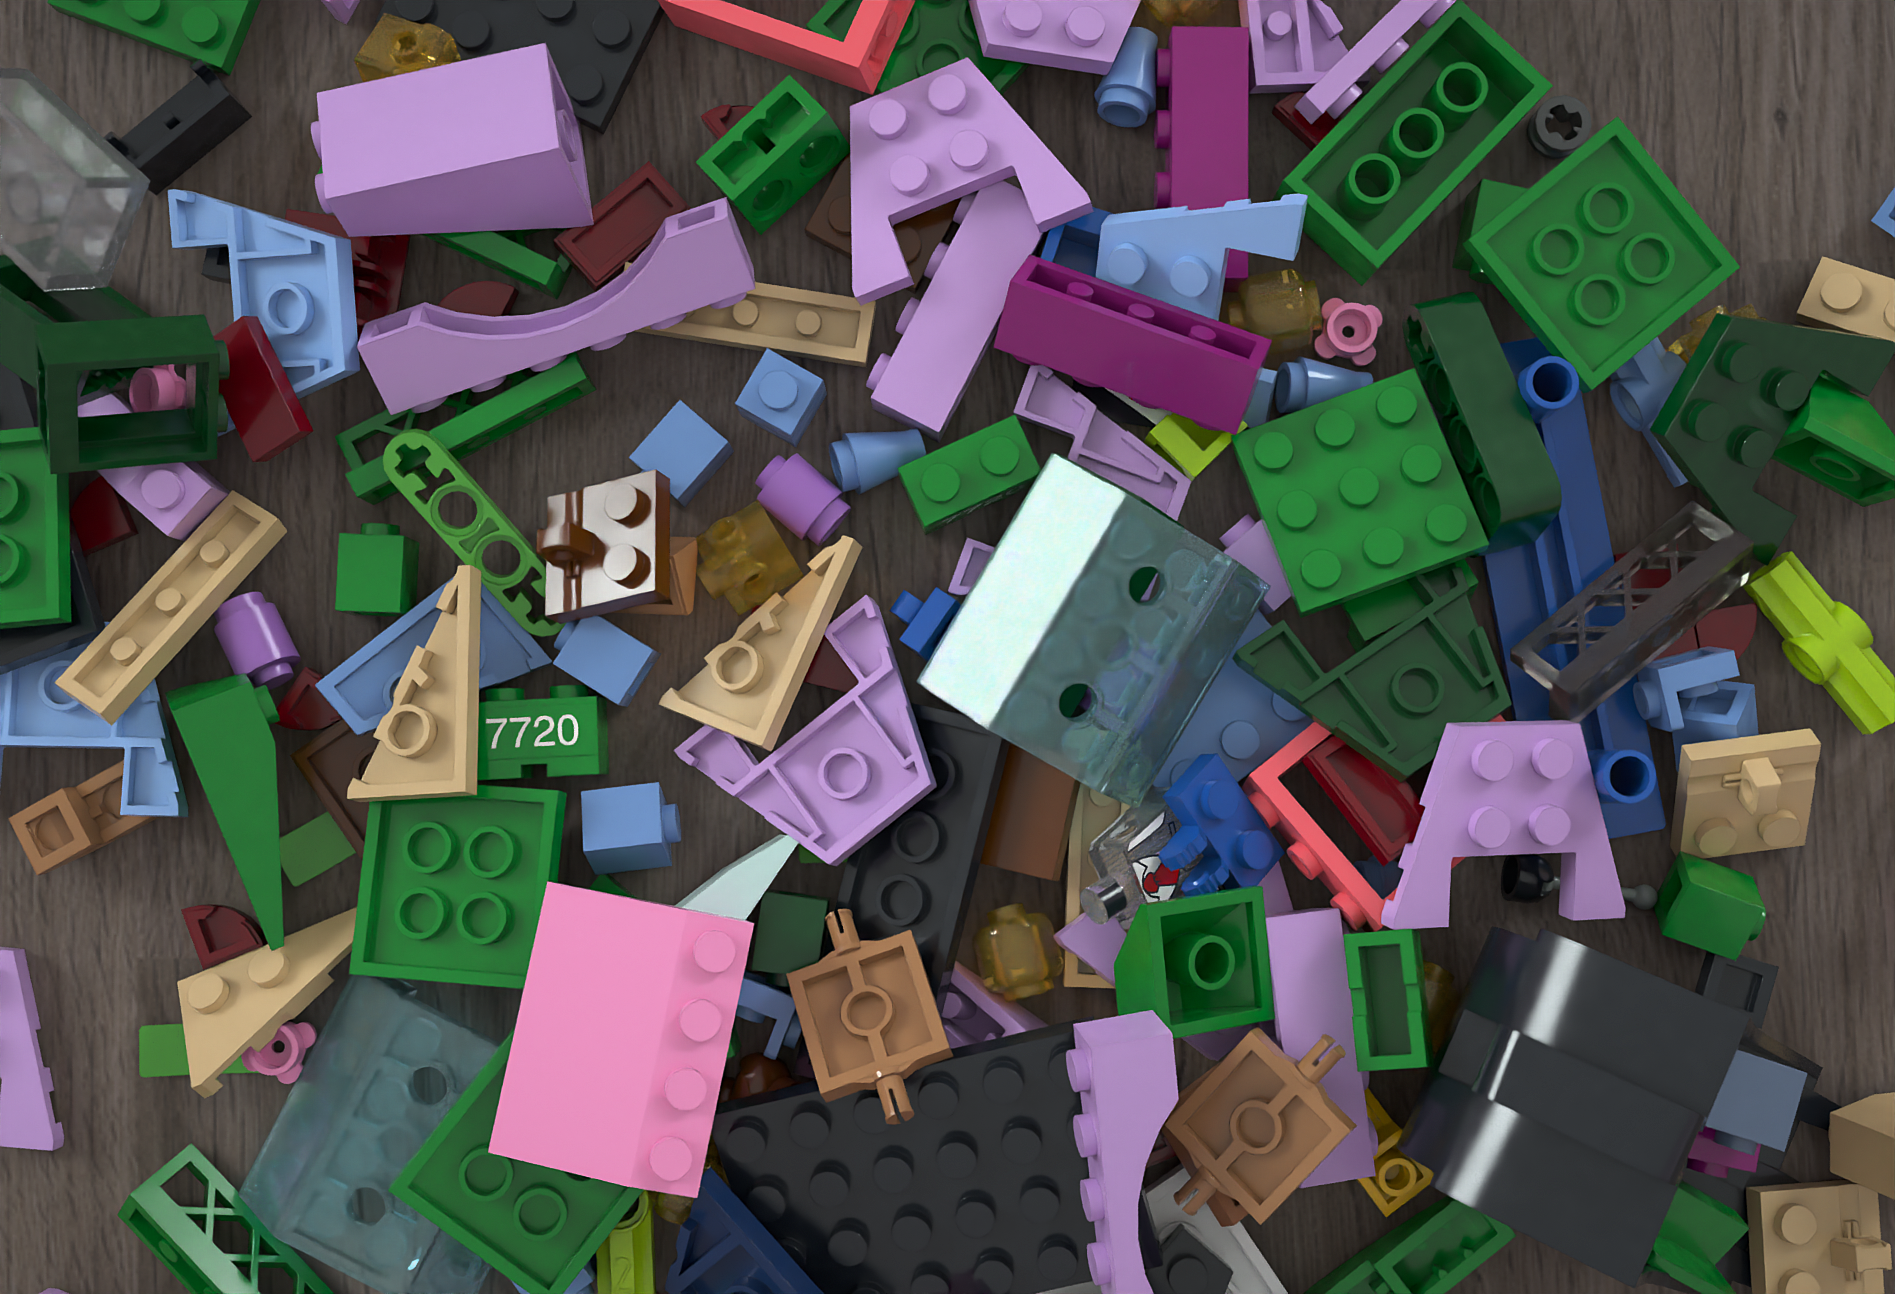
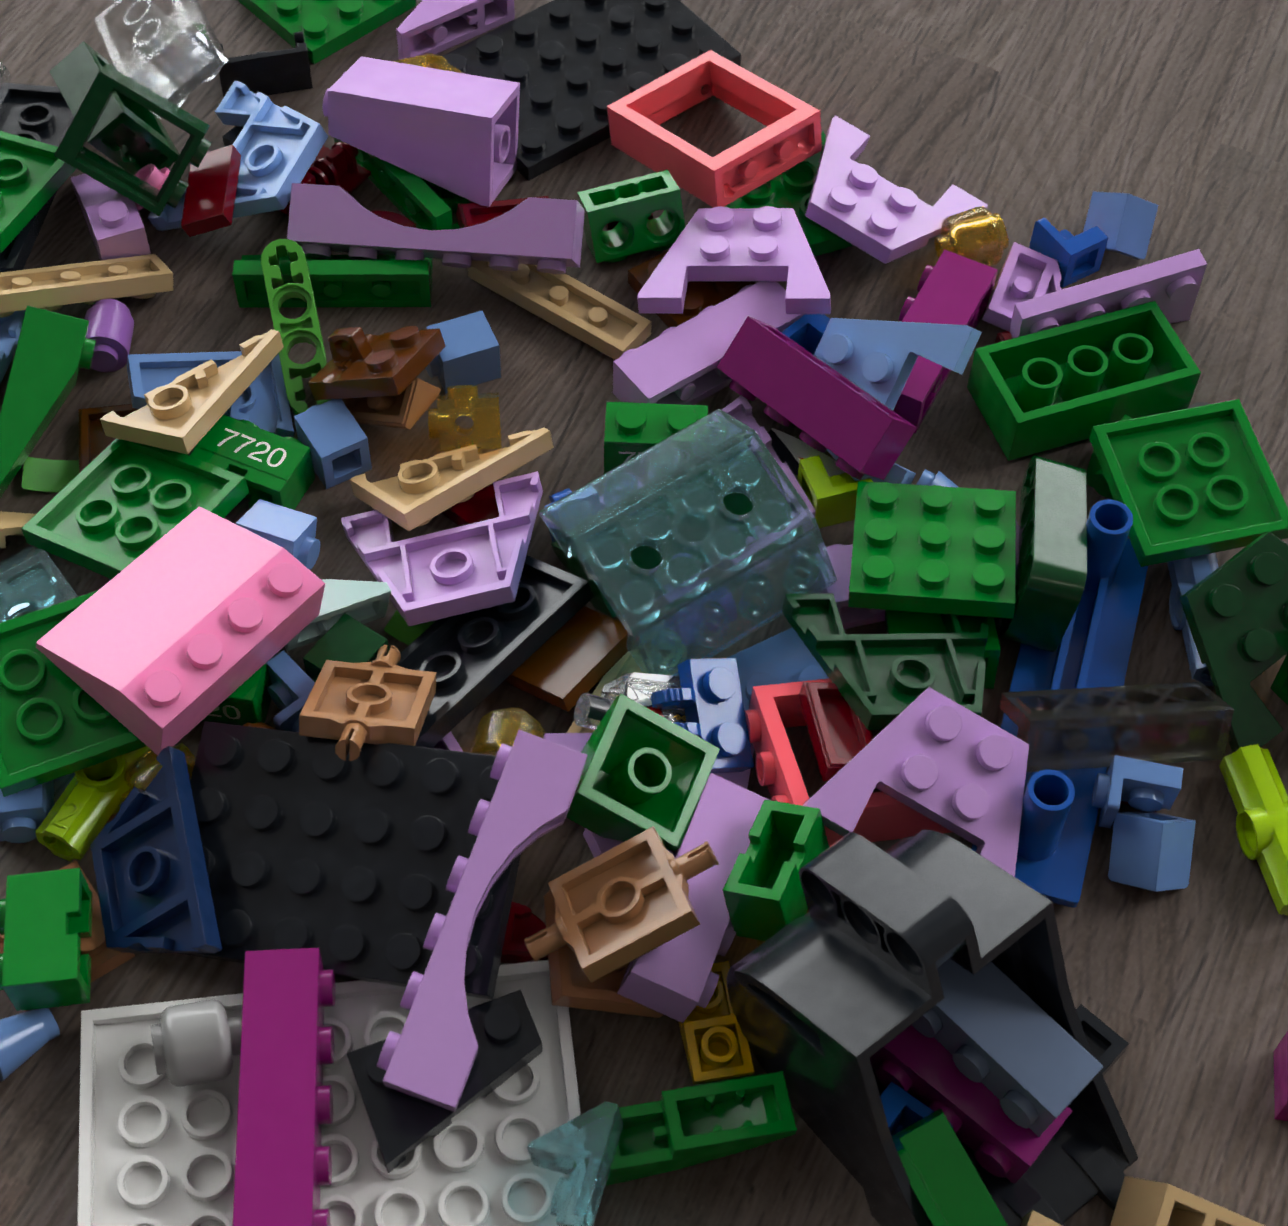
camera: 30 degrees right, 30 degrees down
(101, 517) = (60, 237): dark red tile -> none
(305, 706) = (108, 389): dark red tile -> none
(376, 572) = (213, 325): green brick -> none
(781, 397) = (552, 347): medium blue brick -> none
(801, 498) = (529, 405): medium lavender brick -> none
(873, 458) = (586, 407): medium blue cone -> none
(1130, 86) = (898, 279): medium blue cone -> none
(1278, 308) = (938, 441): clear yellow head -> none
(1363, 321) = (985, 469): bright pink plate -> none
(1709, 906) = (1094, 969): green brick -> none
(1728, 628) = (1196, 793): dark red tile -> none
(1744, 794) = (1153, 896): tan hinge -> none

